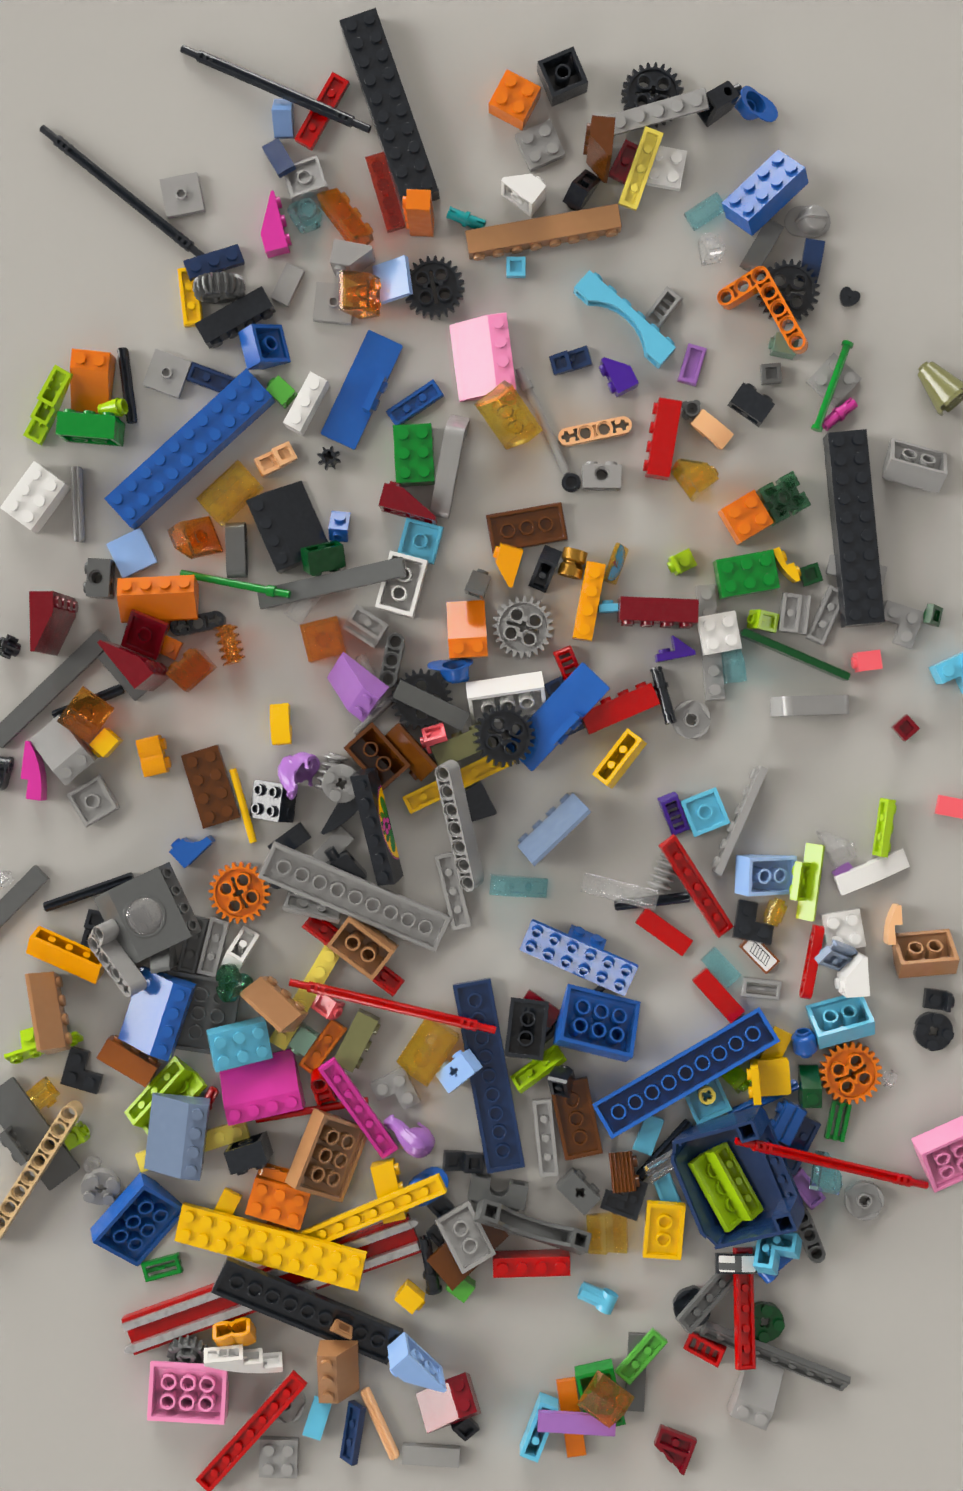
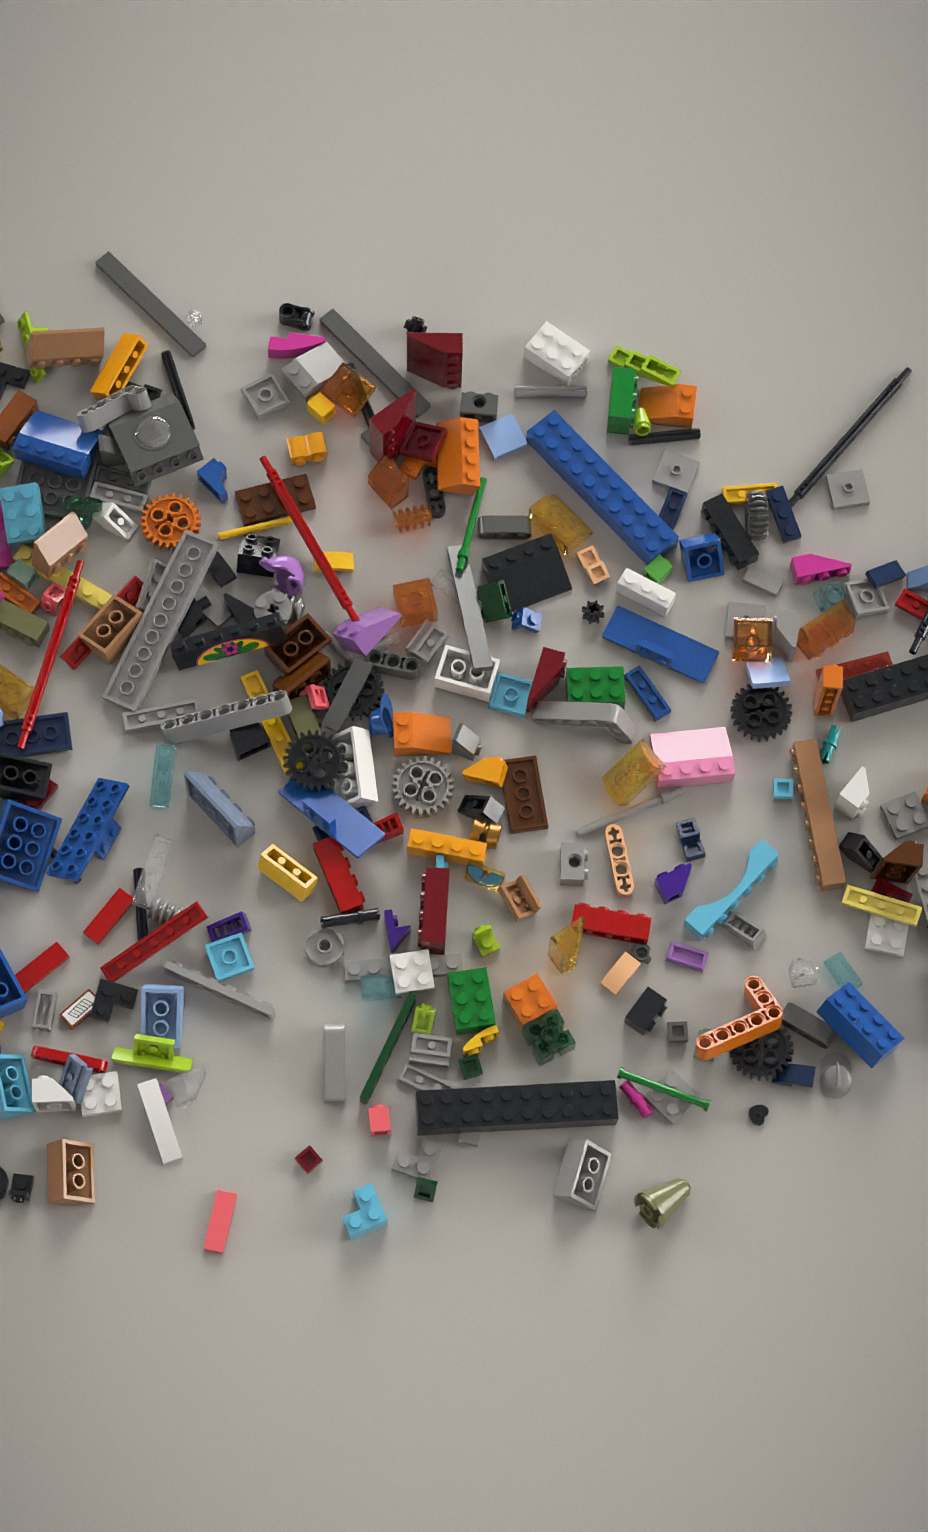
camera: 85 degrees right, 20 degrees down
(195, 537) = (516, 491): clear orange slope -> none
(258, 749) = (309, 539): none -> red axle
(571, 482) = (567, 835): black plate -> none
(638, 528) = (520, 898): none -> medium nougat bracket
(721, 967) = (69, 971): clear light blue tile -> none
(775, 912) = (123, 1023): clear yellow brick -> none
(884, 827) = (205, 1135): lime plate -> none
(893, 918) = (109, 1142): light nougat slope -> none

